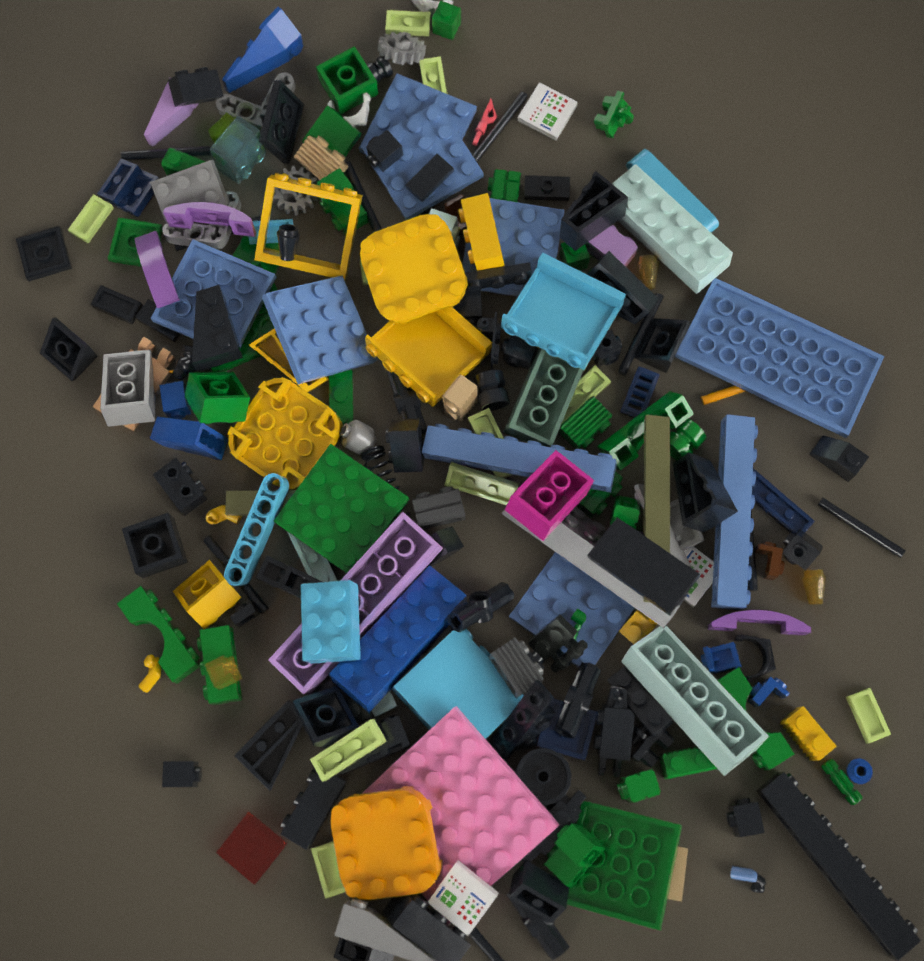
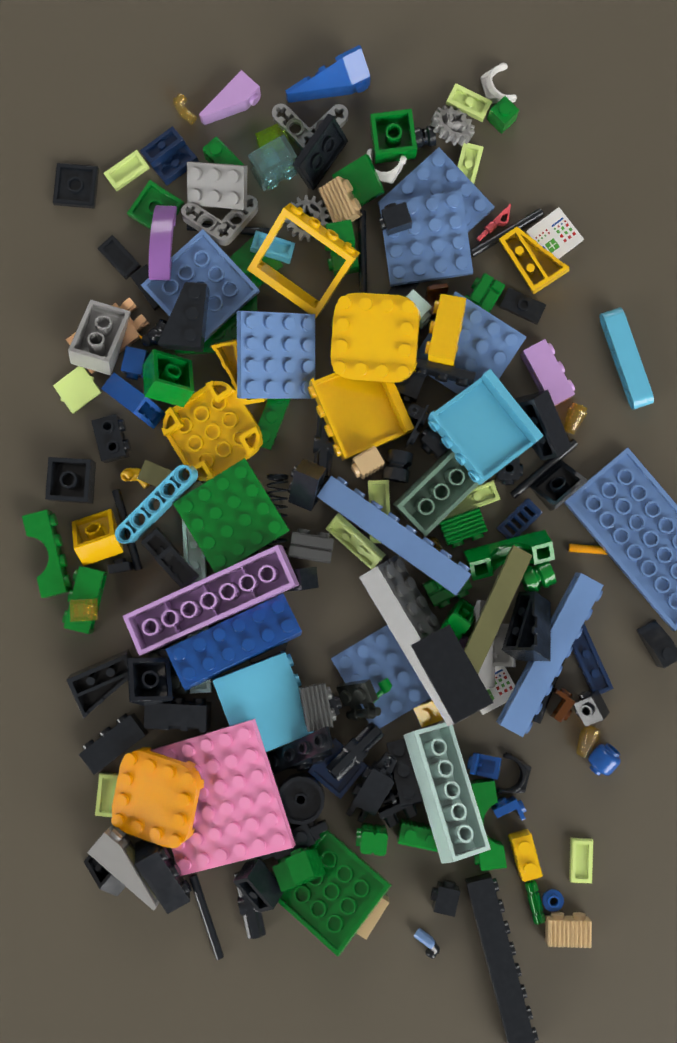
camera: 25 degrees right, 10 degrees up
(66, 350) = (62, 281): black slope -> none
(124, 451) = (77, 389): none -> yellowish green piece
(125, 140) = (185, 113): none -> clear yellow arm
(153, 675) = (31, 582): yellow arm -> none
(160, 153) = (209, 136): black bar -> none
(181, 774) = (21, 673): black brick -> none
(195, 87) = (258, 90): black brick -> none
(210, 213) = (204, 204): medium lavender slope -> none
(252, 848) = (54, 752): clear red tile -> none
(287, 240) = (280, 267): black cone -> none
(330, 622) = (181, 611): medium azure brick -> none
(348, 750) = (156, 714): yellowish green plate -> none
(357, 436) = (270, 459): light grey head -> none
(429, 177) = (425, 258): black tile -> none
(463, 897) = (198, 864): white tile -> none
(480, 607) = (309, 644): black piece -> none
(537, 140) = (532, 261): none -> yellow wedge
(549, 495) = (401, 584): dark pink brick -> none
(577, 259) = (518, 377): green brick -> none
(593, 212) = (549, 350): black wedge -> none
(617, 114) = (612, 266): green hips -> none
(671, 231) = (606, 387): light aqua brick -> none
(788, 624) = (505, 739): medium lavender slope -> none
(841, 597) = (604, 759): none -> blue head
(861, 527) = (649, 709): black bar -> none
(891, 795) = (568, 930): none -> tan brick

